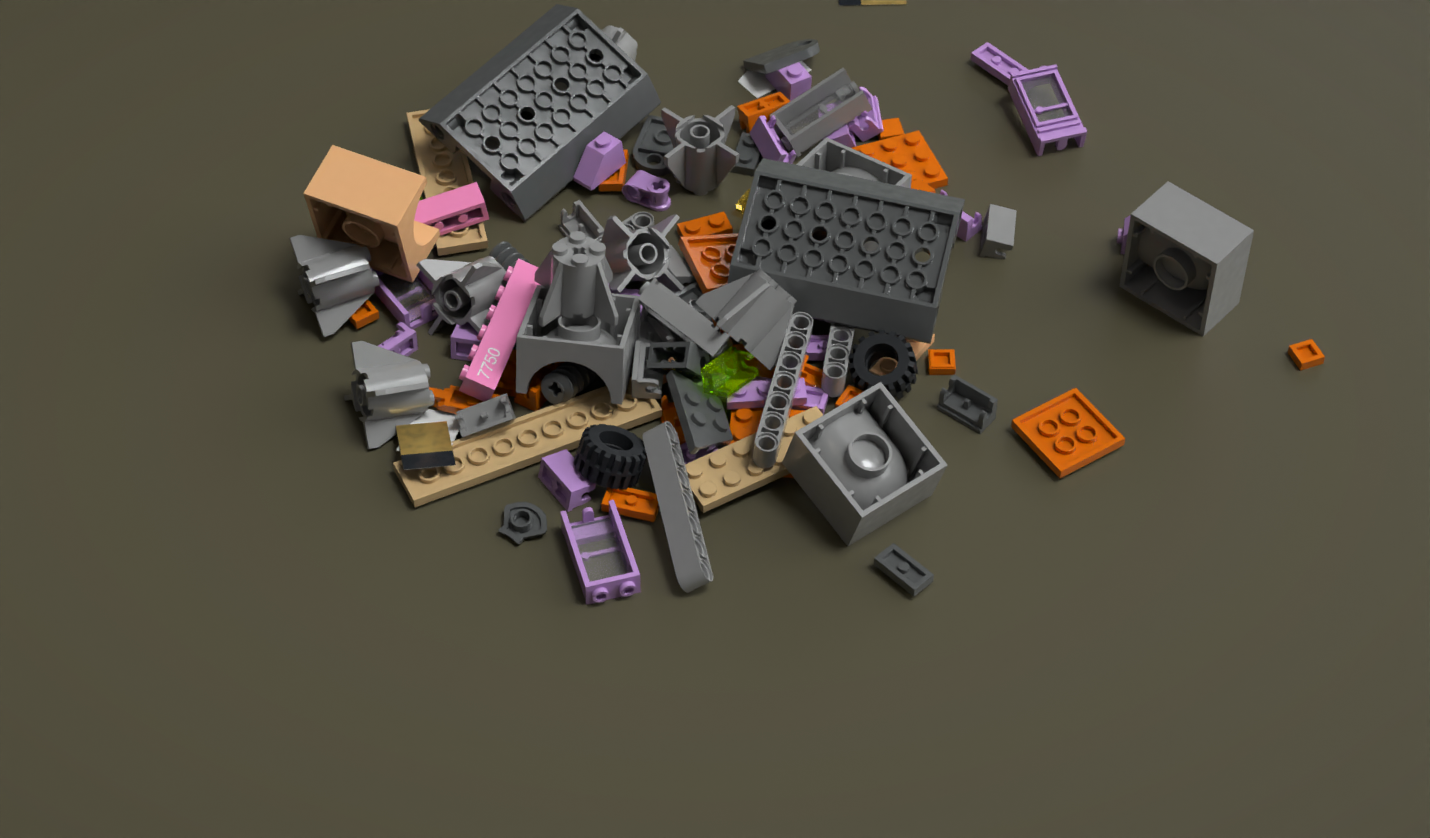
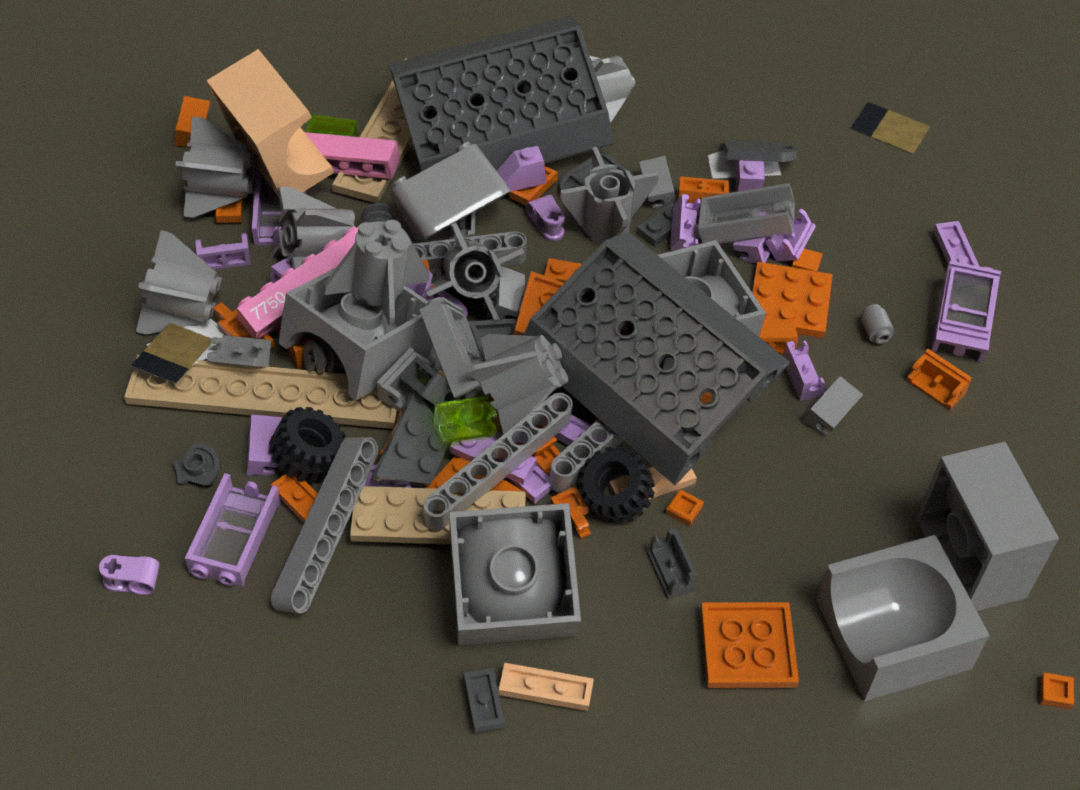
camera: 30 degrees right, 5 degrees up
(256, 254) = (190, 108): none -> orange hinge
(546, 624) = (132, 574): none -> lavender piece
(558, 203) = (447, 191): none -> light grey windscreen
(713, 107) = (664, 188): none -> light grey hinge
(943, 536) = (546, 686): none -> light nougat plate
(984, 152) = (877, 324): none -> light grey brick
(1062, 173) = (939, 379): none -> orange hinge
(1166, 354) = (901, 617): none -> light grey piece

